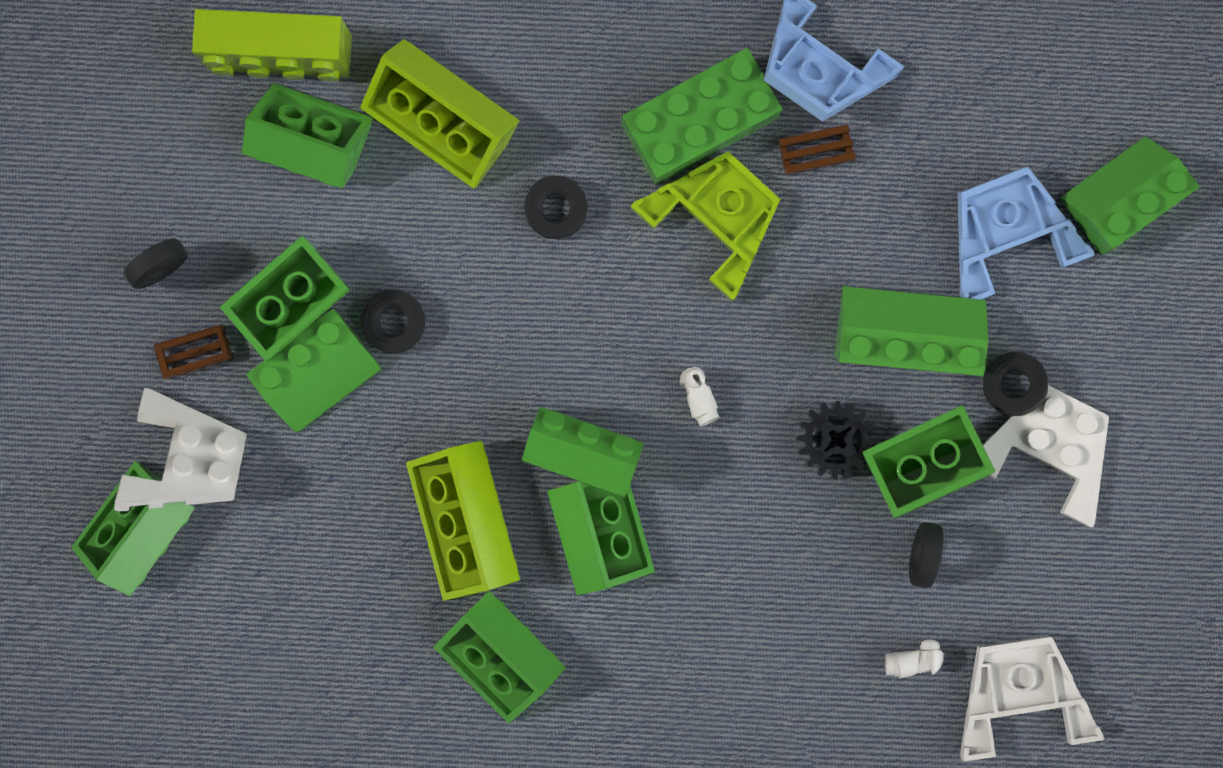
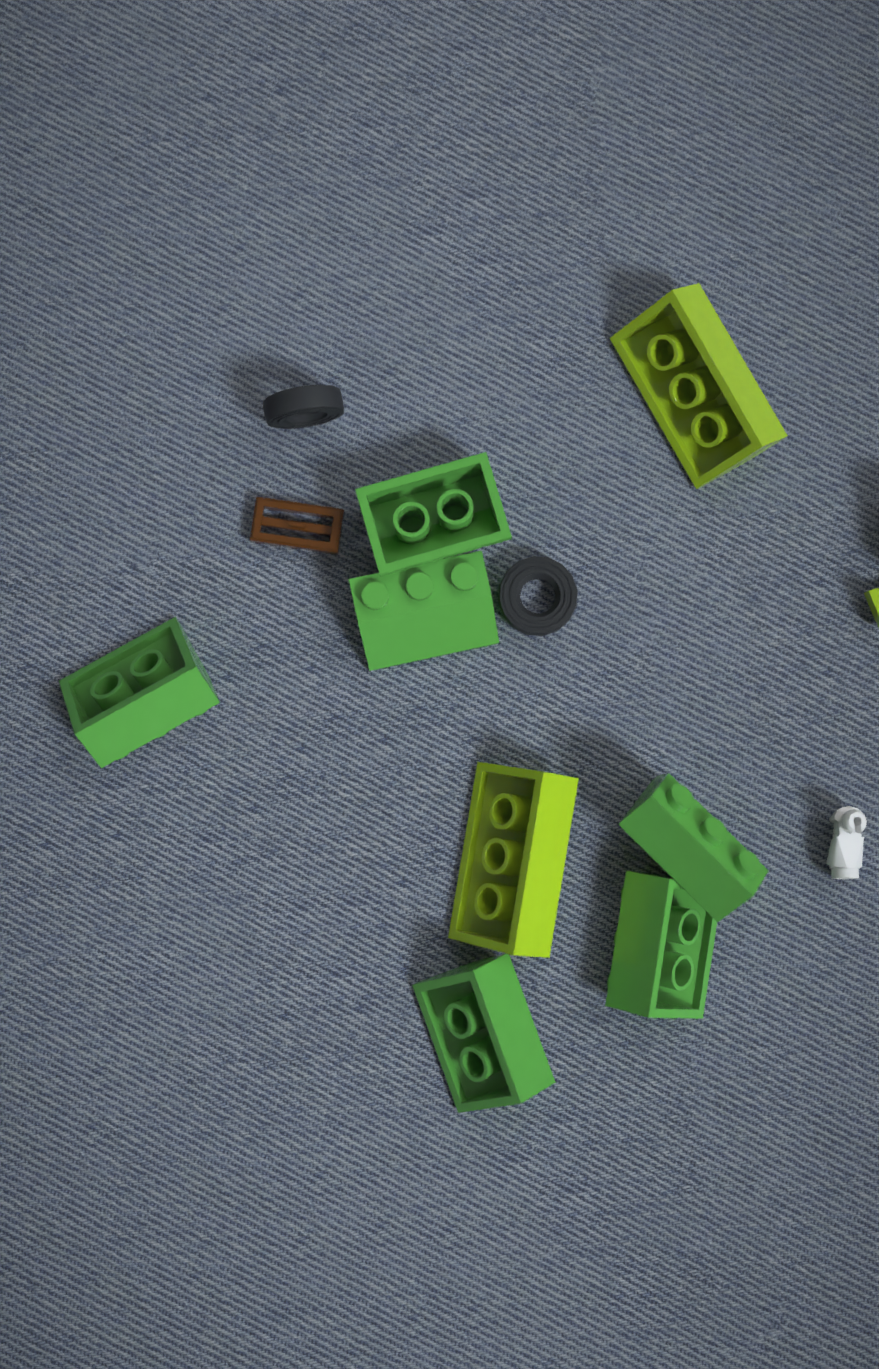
camera: 25 degrees right, 0 degrees up
(200, 462) = (253, 651): white wing -> none
(272, 44) = (549, 220): lime brick -> none
(306, 135) = (536, 341): bright green slope -> none
(561, 186) = (806, 545): black tyre -> none

